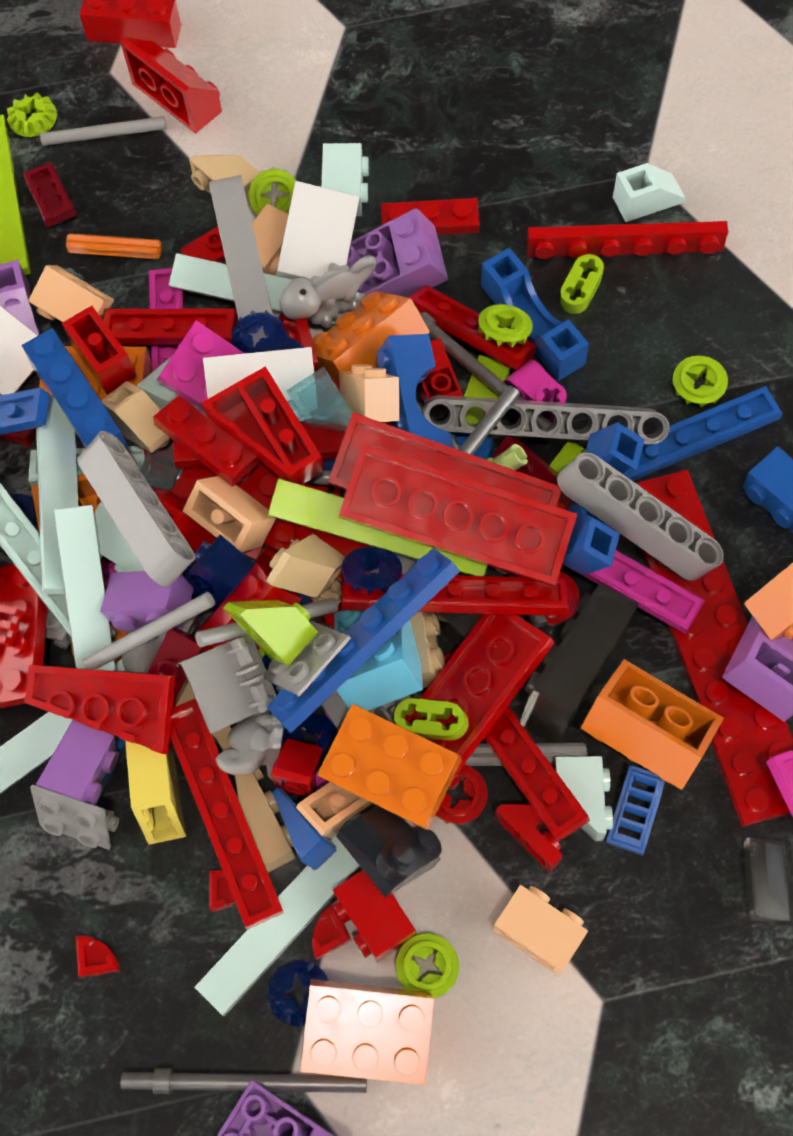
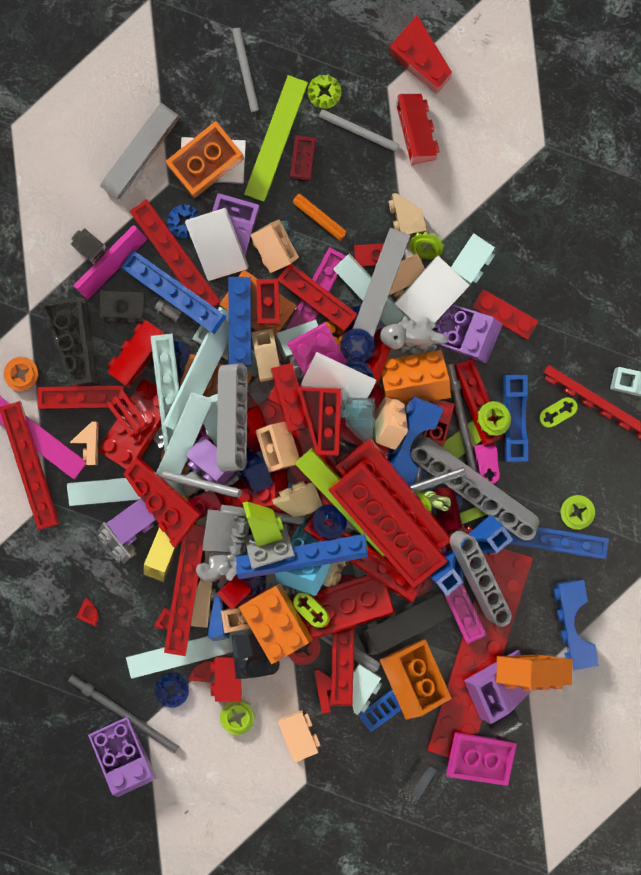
camera: 25 degrees right, 20 degrees up
(367, 1032) = (190, 730): brick -> none

